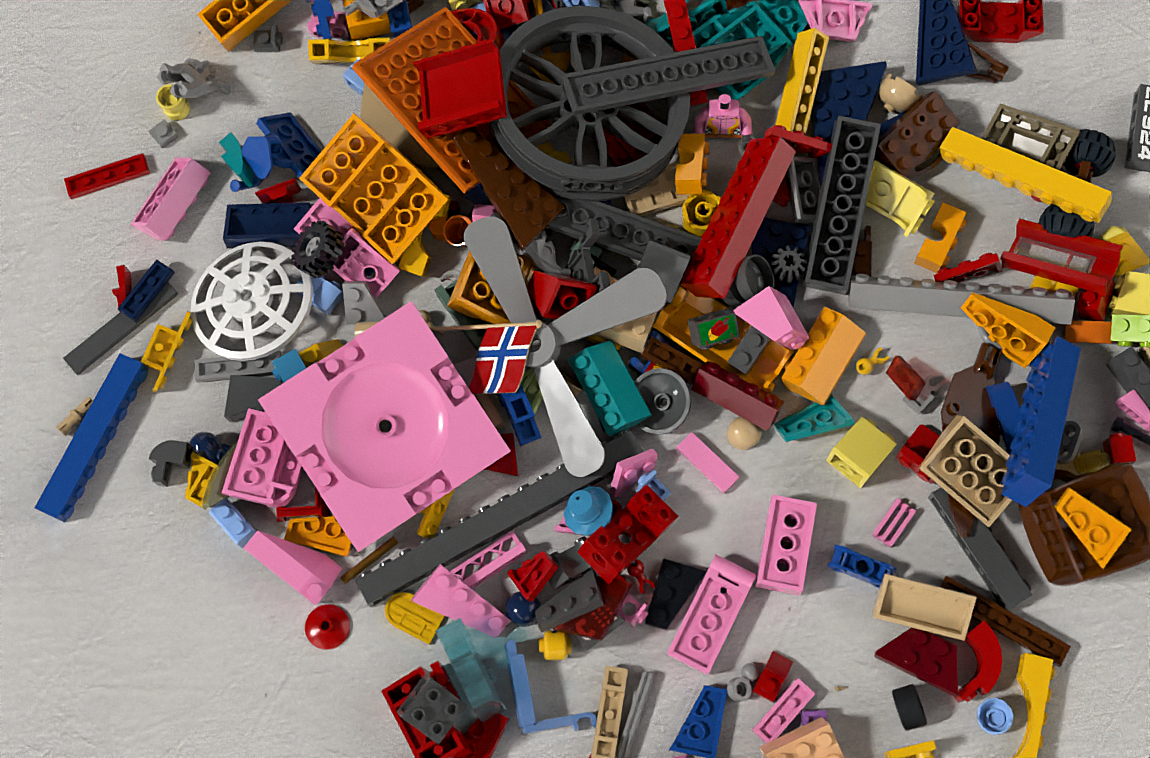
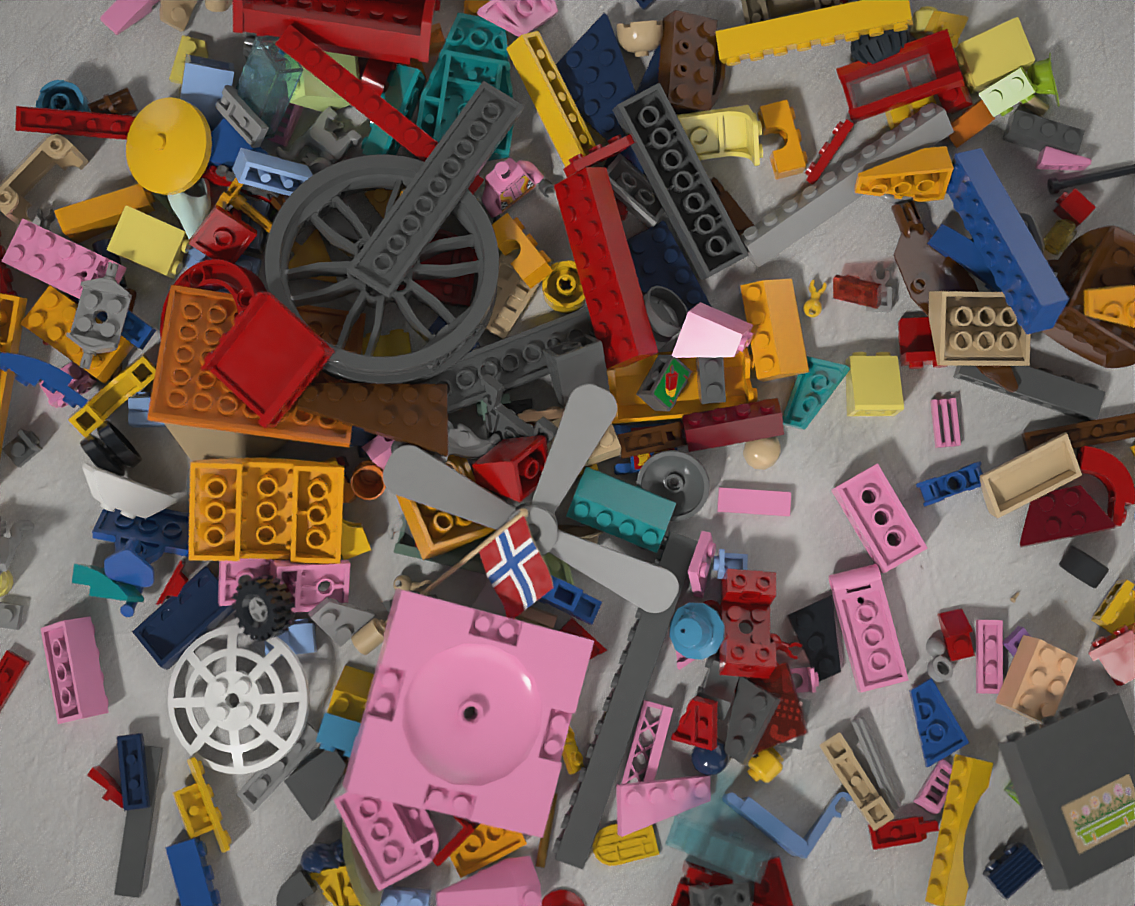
camera: 50 degrees left, 10 degrees up
(299, 111) = (125, 494): none -> white wedge
(316, 81) = (112, 449): none -> black wheel
(780, 261) = (683, 265): dark grey gear -> none

